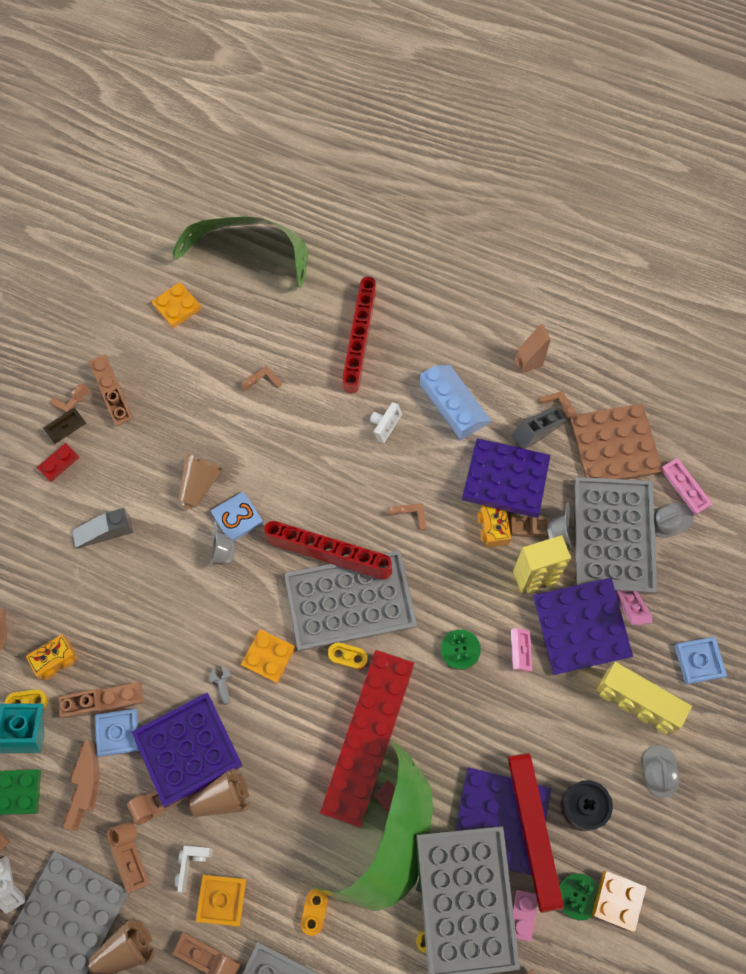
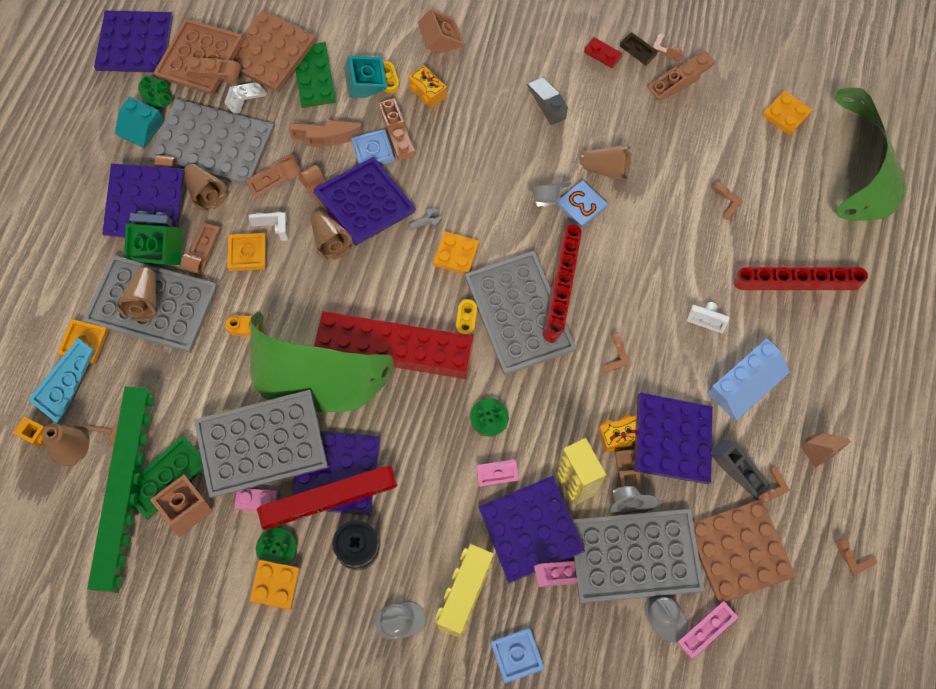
camera: 80 degrees right, 0 degrees up
(622, 359) = (843, 546): none -> nougat piece

